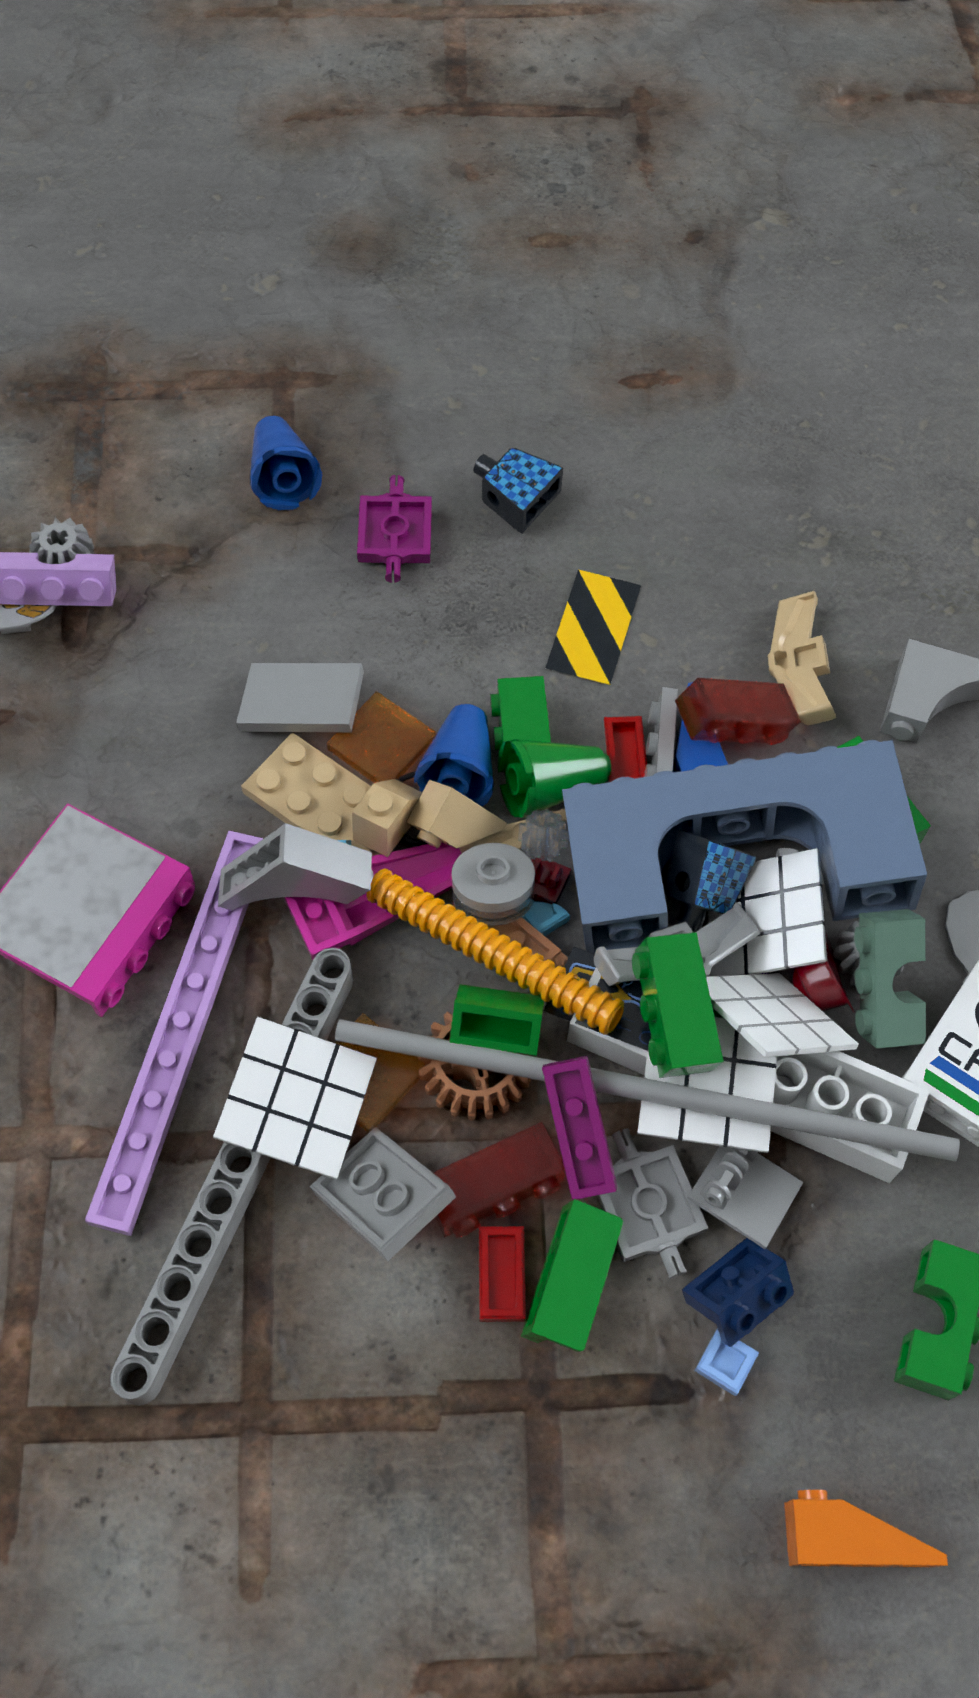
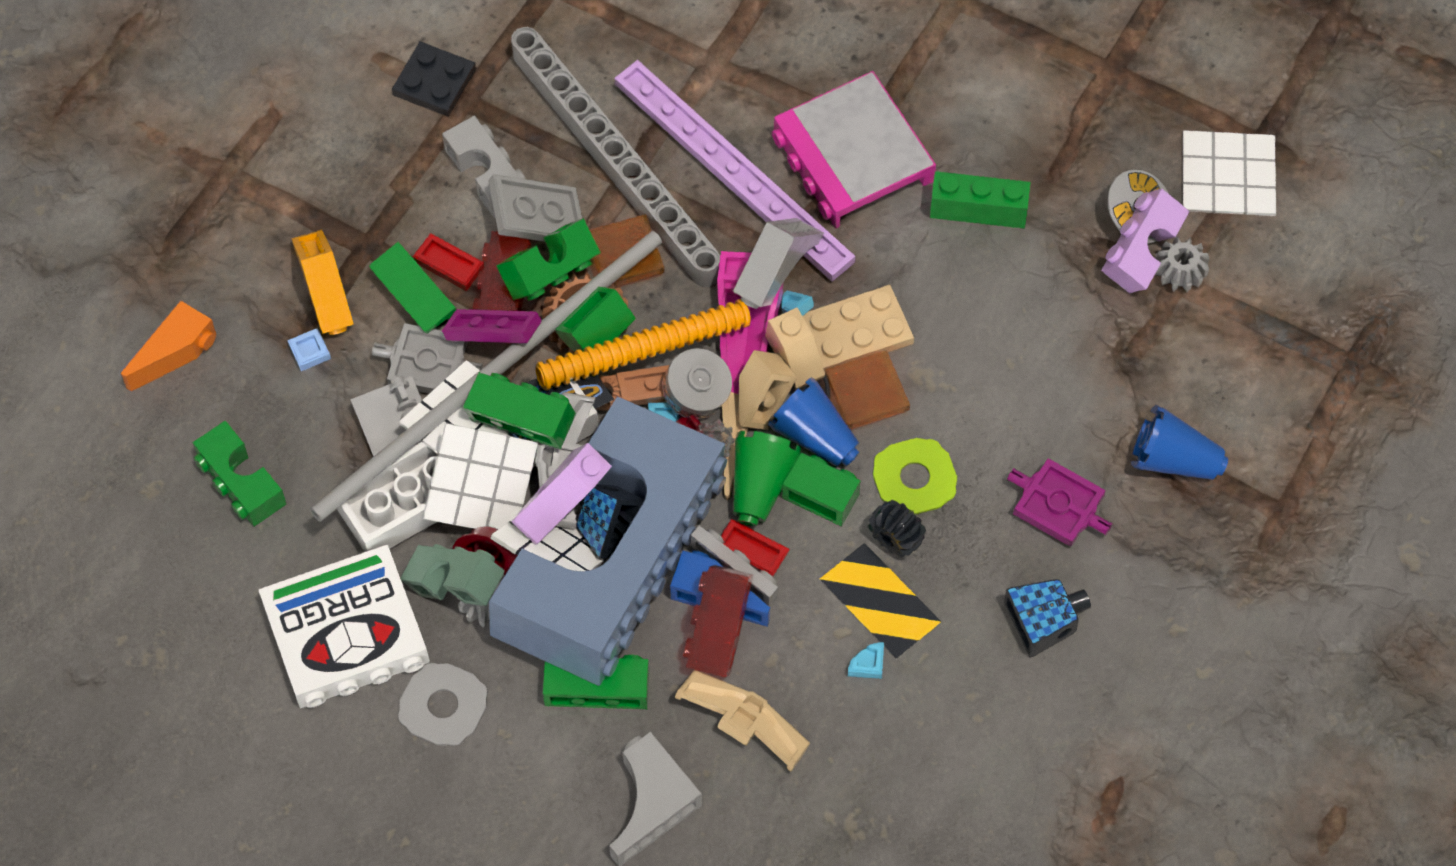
camera: 125 degrees right, 0 degrees up
(85, 751) = (980, 199): none -> green brick
(246, 1481) = (434, 78): none -> black plate
(295, 1098) = (629, 194): white piece -> none
(300, 697) = (938, 354): light grey tile -> none
(323, 1348) = (474, 145): none -> light grey arch
(416, 1115) = (569, 249): none -> green arch
(444, 690) = (920, 451): none -> lime piece
(522, 629) = (897, 528): none -> black gear
(633, 1407) = (323, 282): none -> light orange arch
(663, 601) = (868, 662): none -> medium azure tile
(727, 913) = (561, 492): none -> lavender slope
(740, 1290) = (338, 371): dark blue bracket -> none

